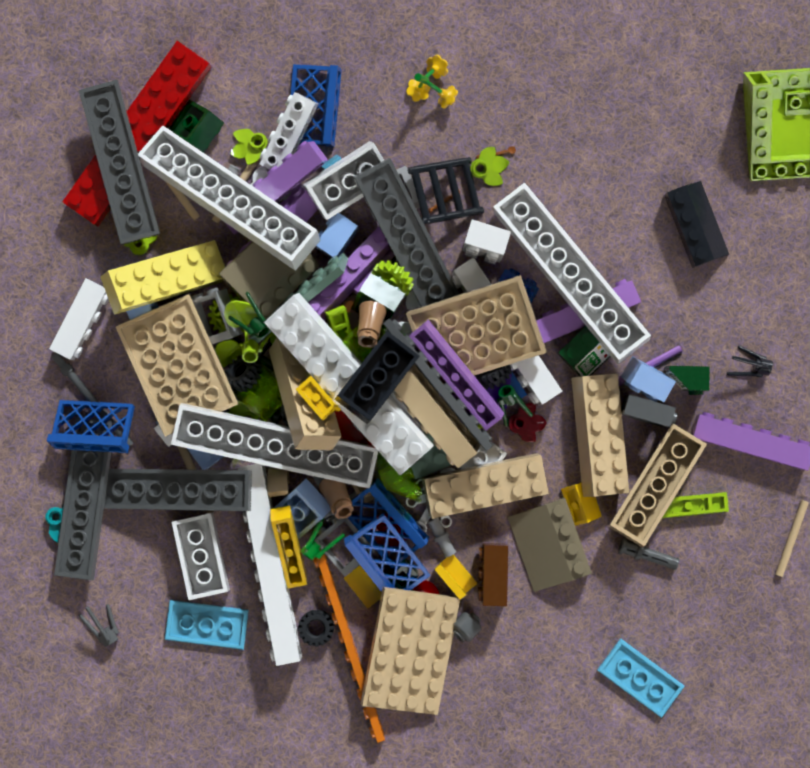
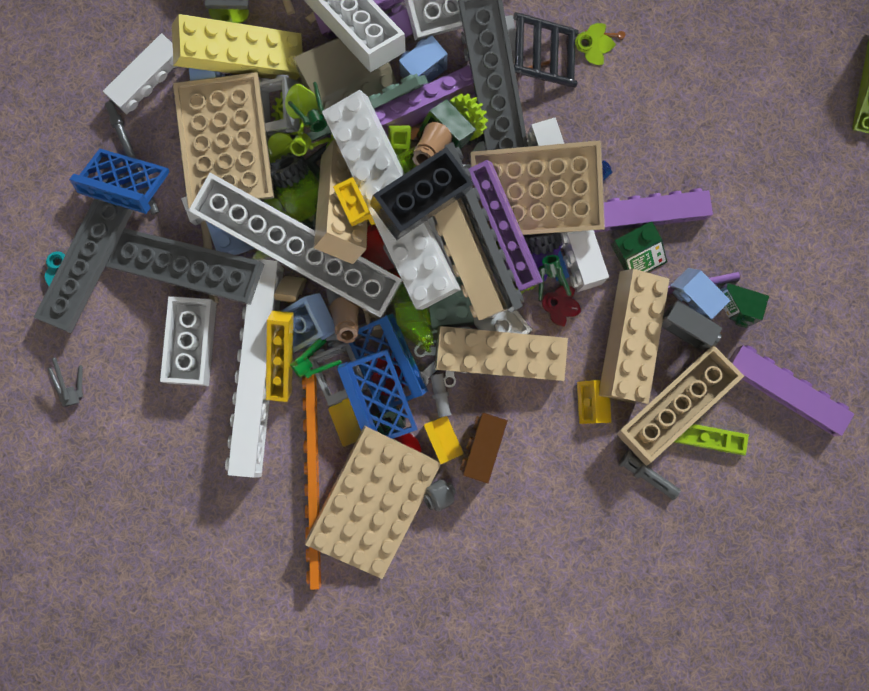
camera: 15 degrees right, 5 degrees down
(206, 624) = (174, 415): medium azure tile -> none
(311, 639) = (271, 446): black tyre -> none
(486, 242) = (573, 103): white brick -> none
(549, 544) = (550, 435): dark tan slope -> none
(571, 273) = (651, 165): white brick -> none
(640, 677) = (606, 603): medium azure tile -> none
(696, 224) = (786, 156): black slope -> none
(760, 365) = (817, 315): black plant -> none
(792, 538) = (803, 503): tan bar -> none

